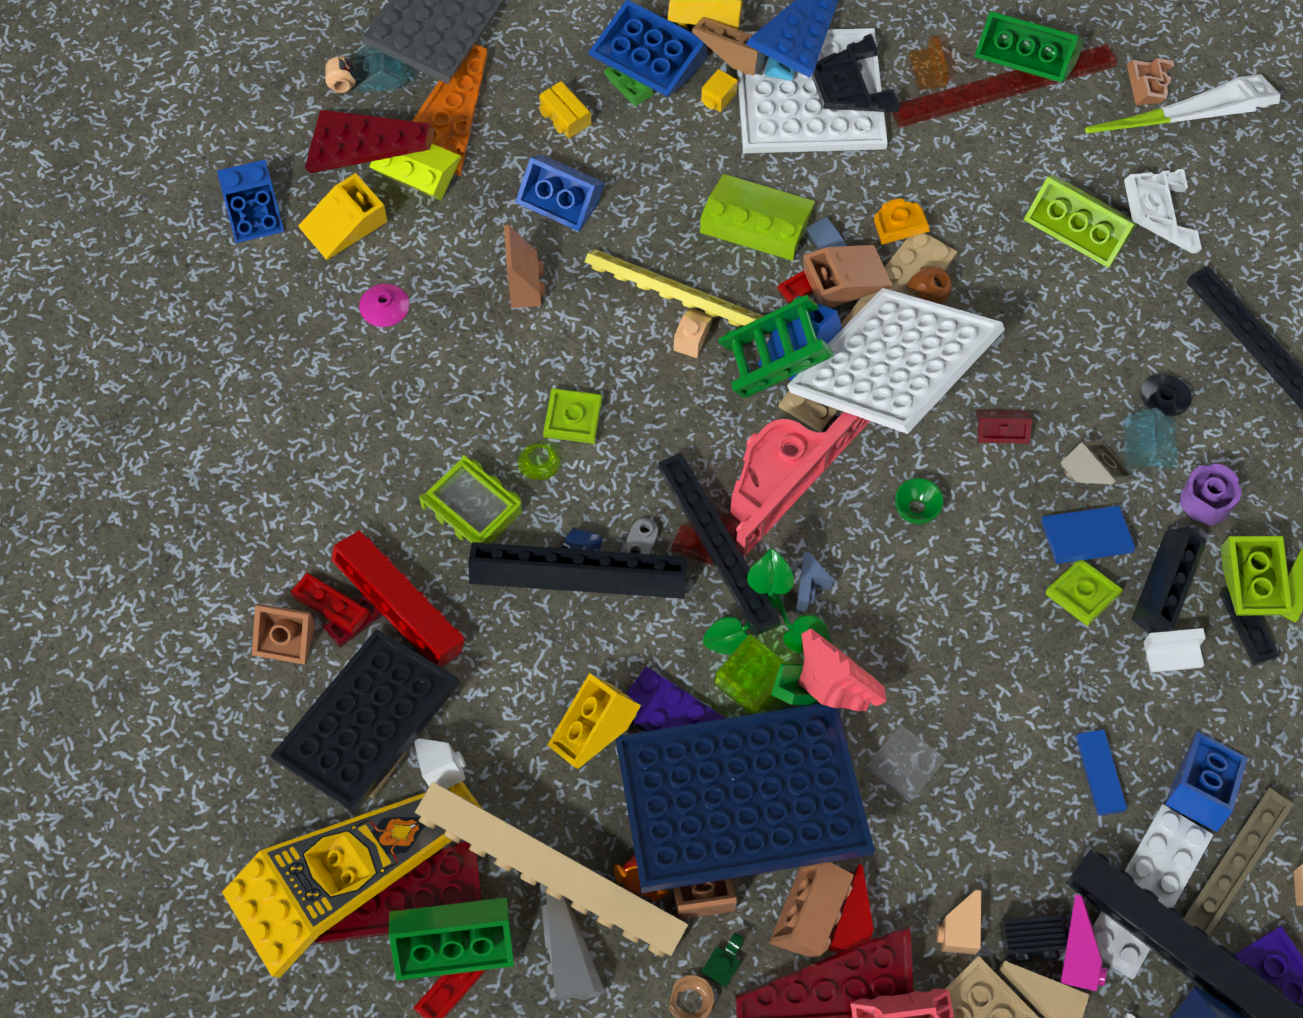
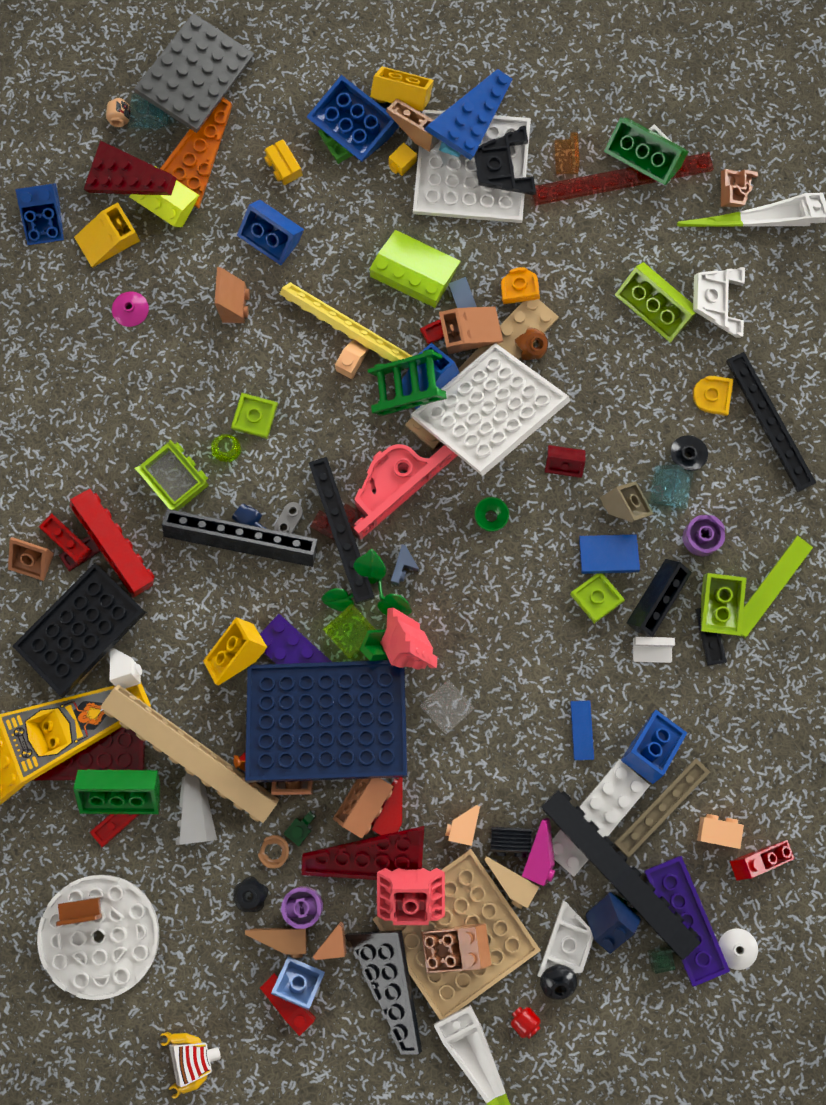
camera: 10 degrees right, 15 degrees up
(1180, 323) = (713, 394): none -> yellow tile

